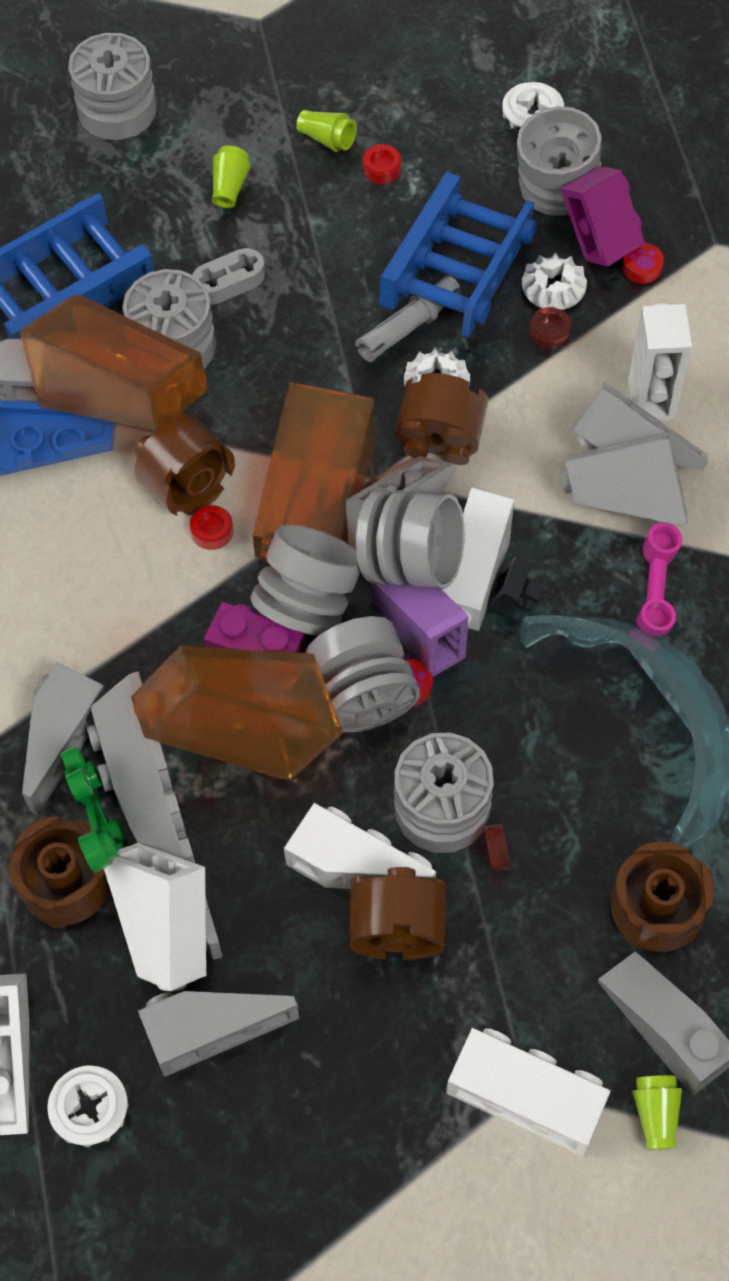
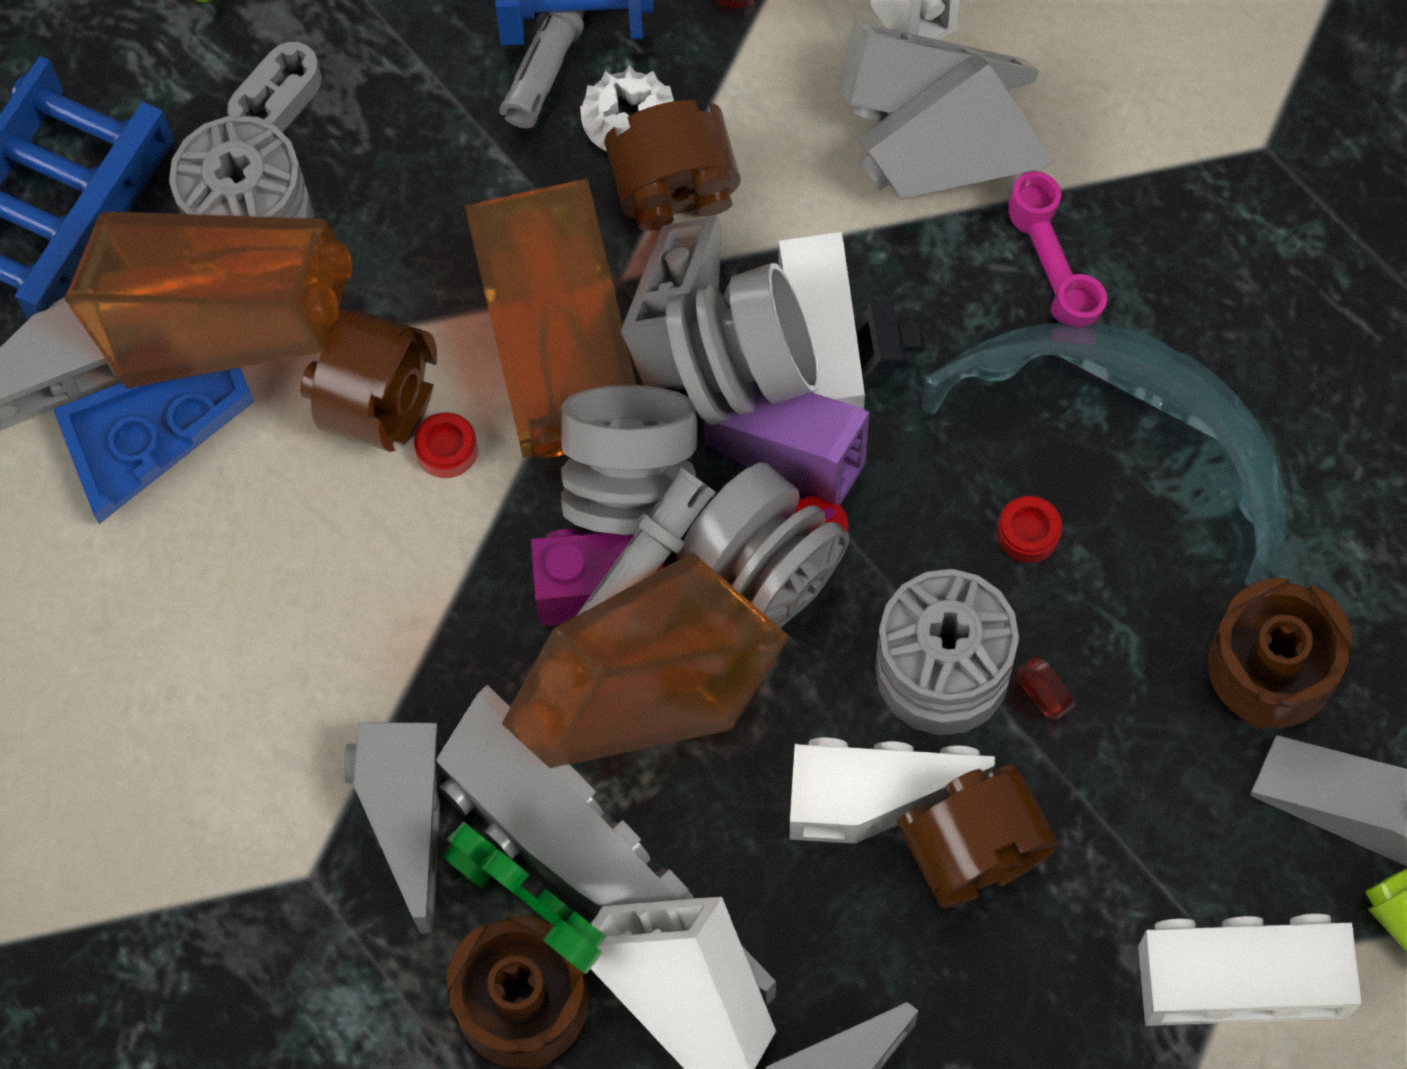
camera: 25 degrees left, 5 degrees up
(299, 628) = (655, 538): none -> light grey pin
(546, 745) = (1029, 529): none -> red tile

